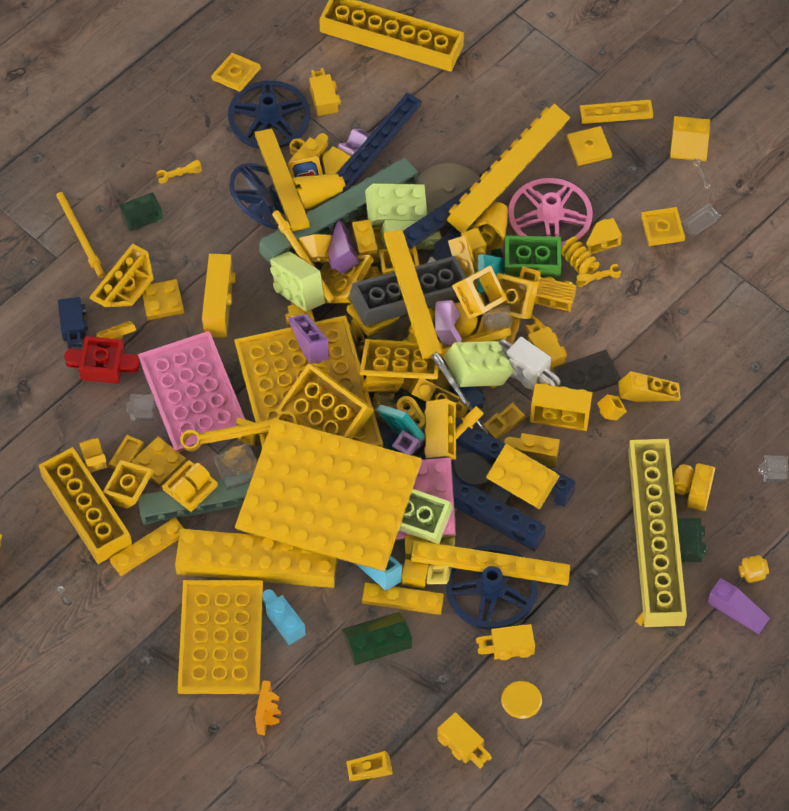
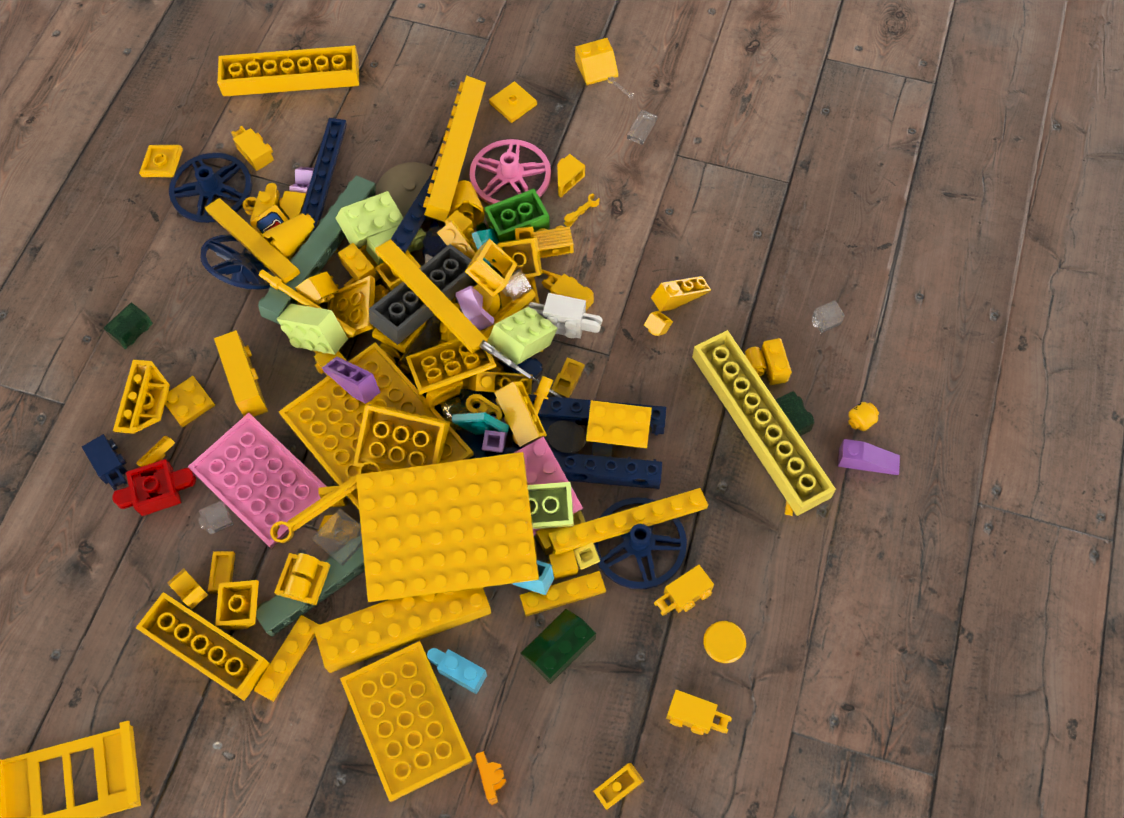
camera: 25 degrees left, 5 degrees up
(93, 260) = (101, 391): yellow bar -> none
(161, 459) = (258, 563): yellow plate -> none
(193, 167) = (161, 263): yellow piece -> none
(342, 250) = (340, 282): medium lavender slope -> none
(537, 447) = (616, 389): yellow brick -> none
(561, 407) = (615, 342): yellow brick -> none
(578, 257) = (557, 202): yellow piece -> none
(589, 372) = (619, 302): clear smoke tile -> none
(616, 111) = (521, 63): yellow plate -> none
(662, 226) = (613, 145): yellow plate -> none

